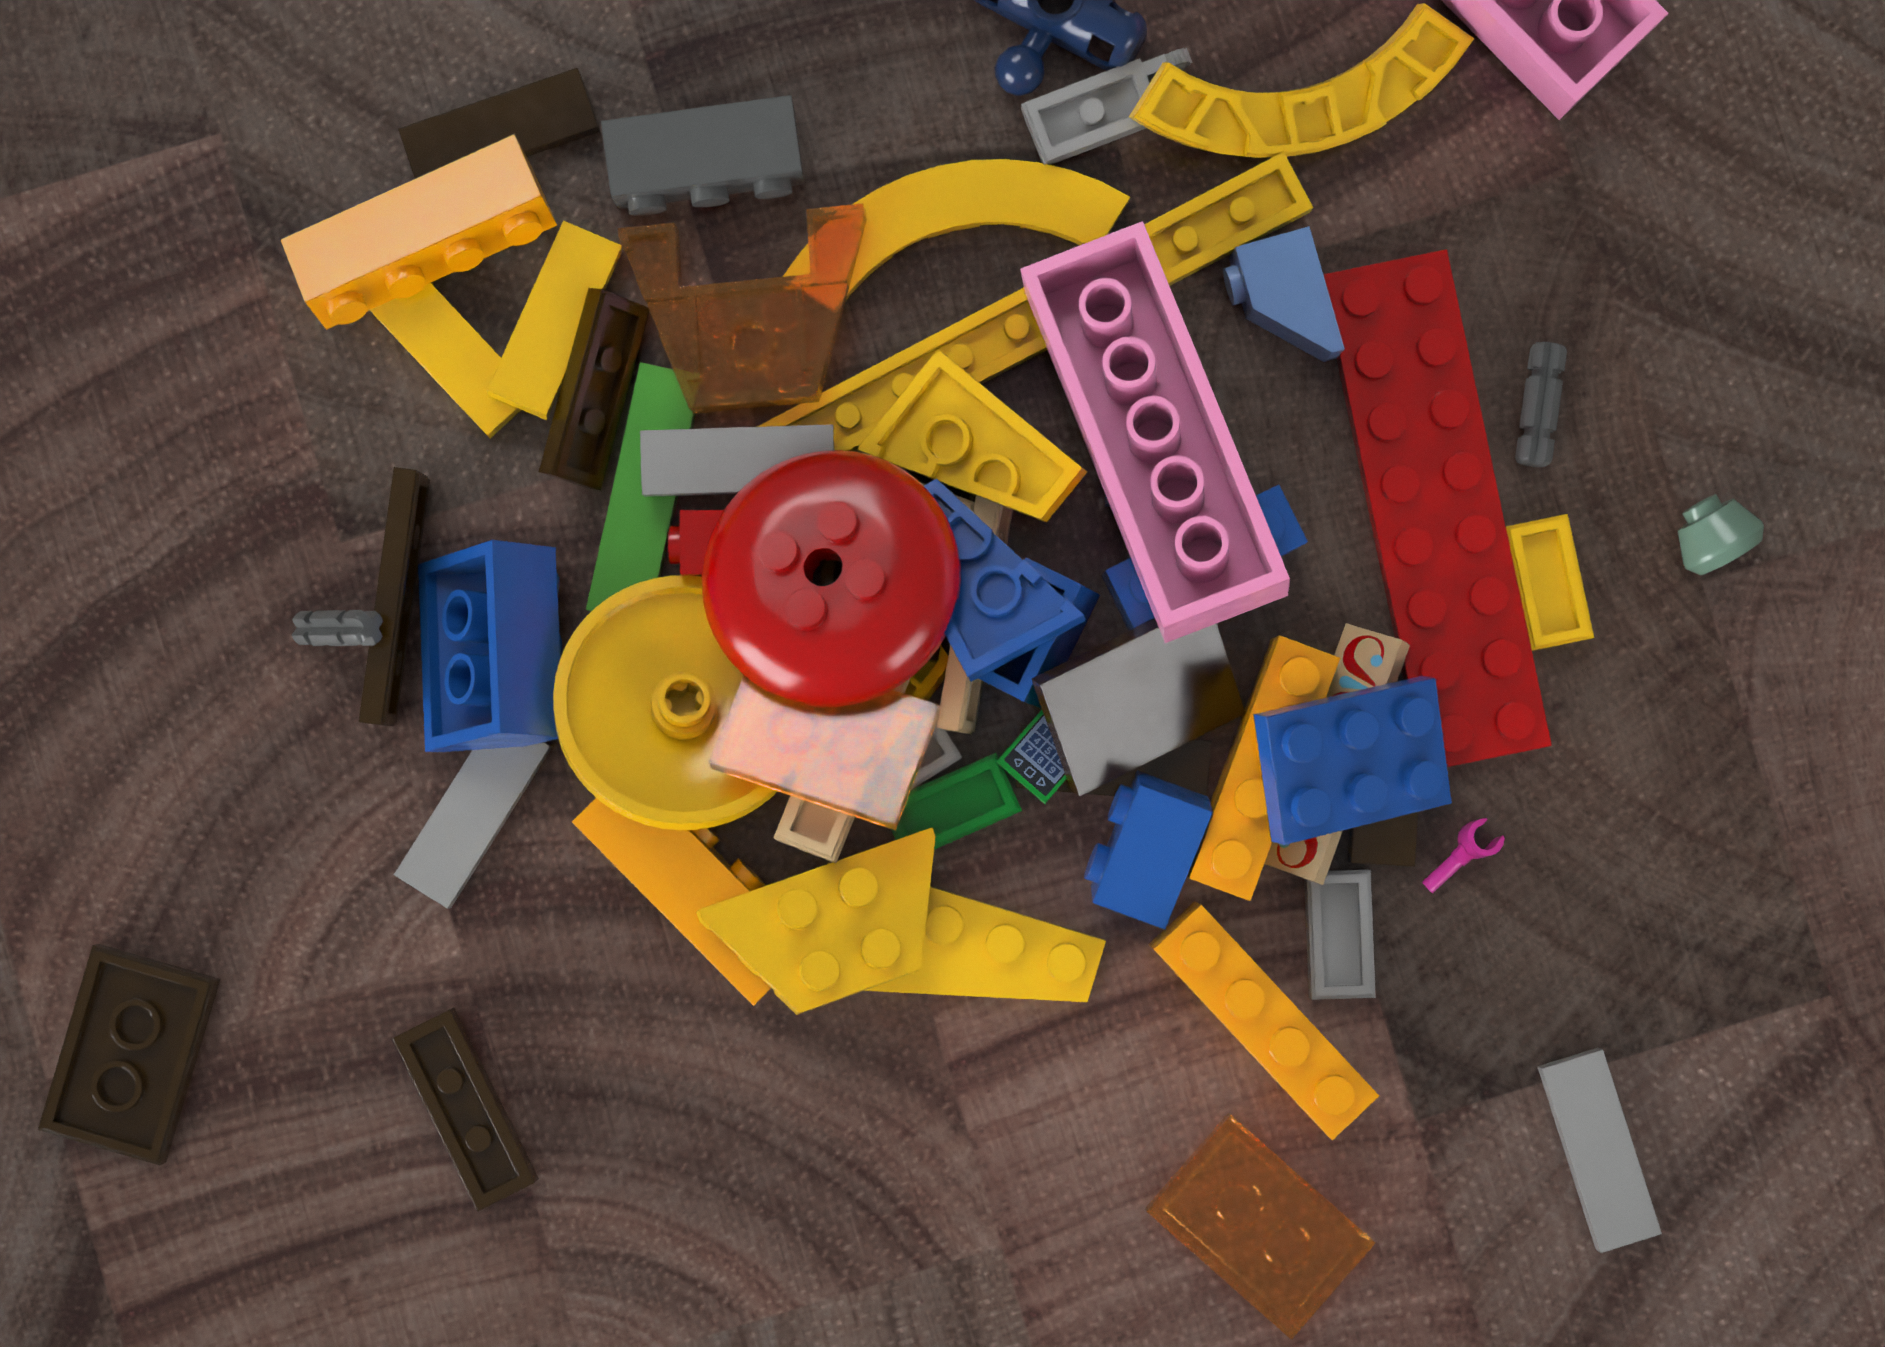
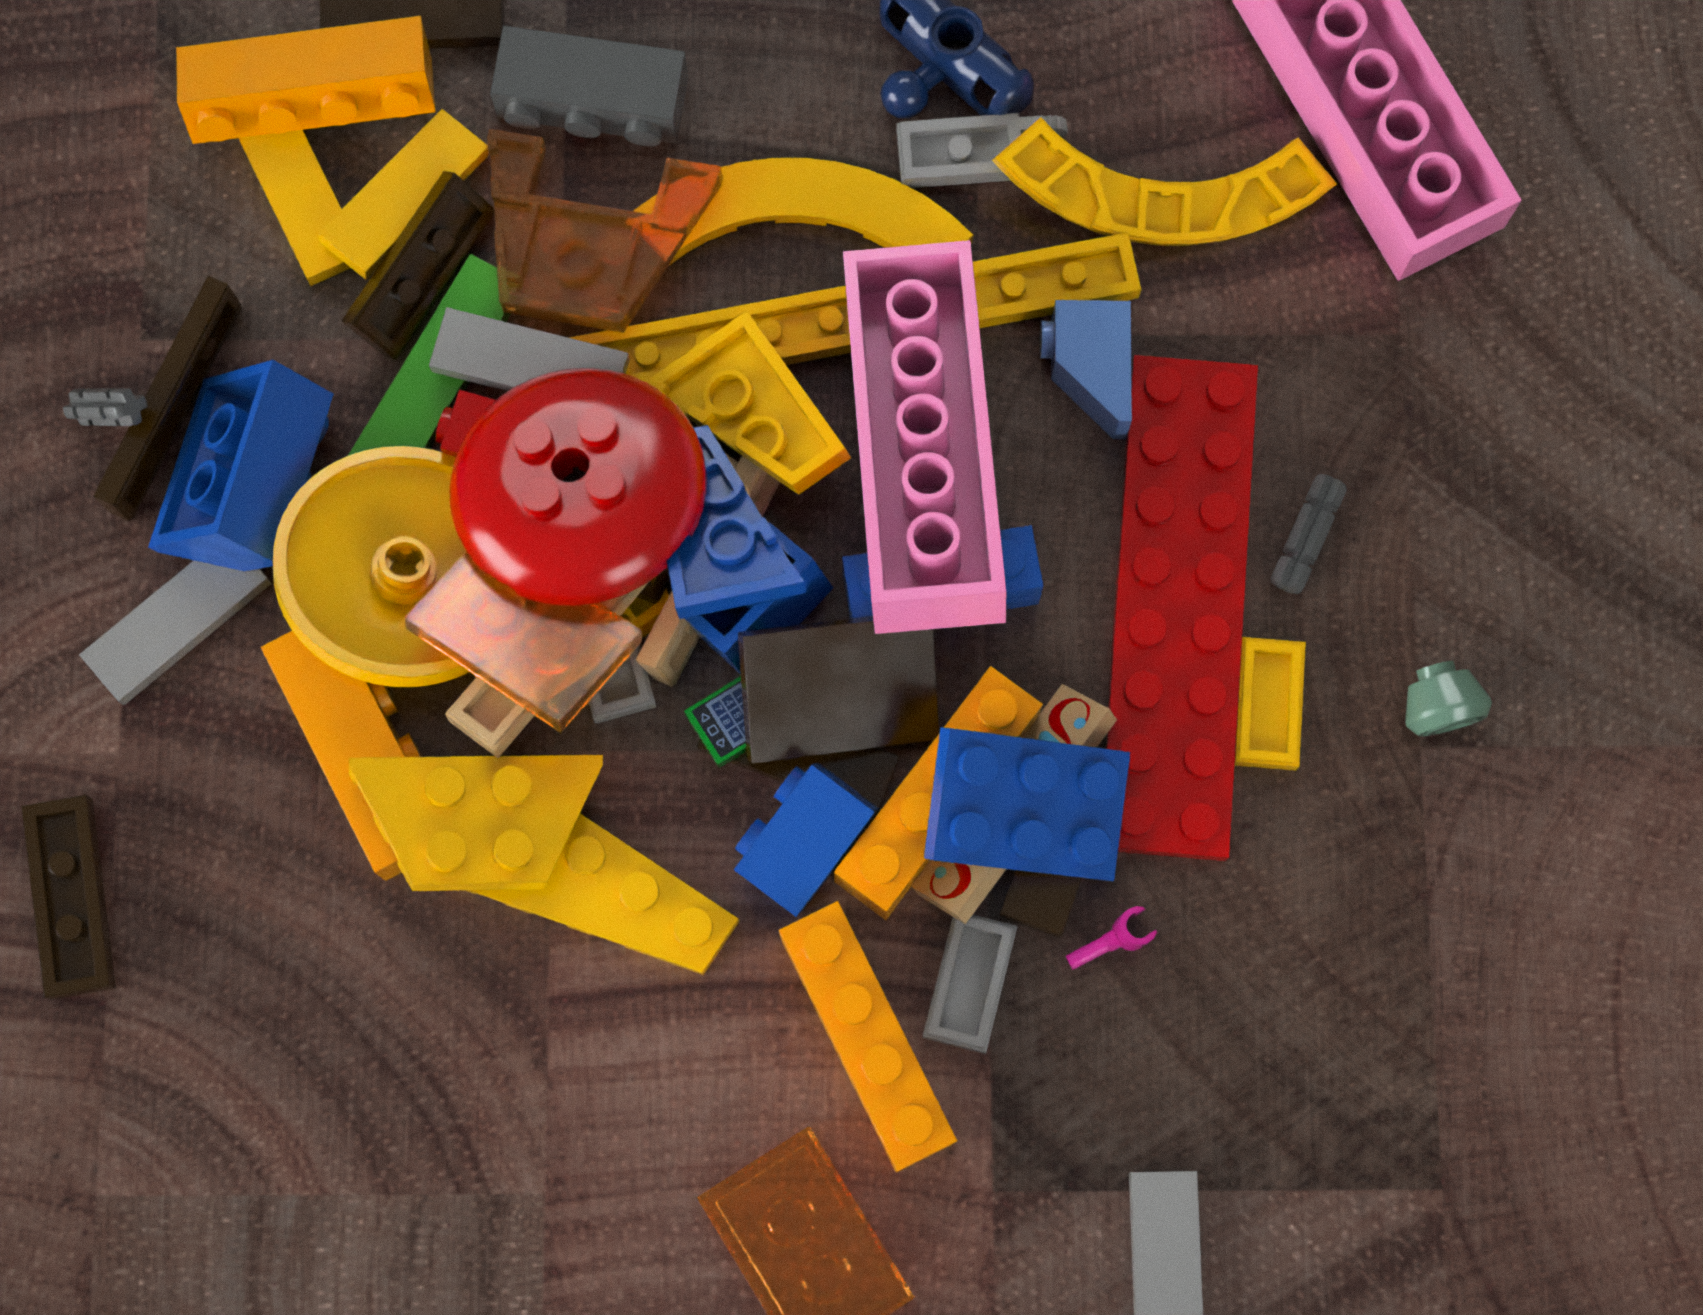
camera: 15 degrees right, 10 degrees down
(959, 802) = (636, 746): green tile -> none

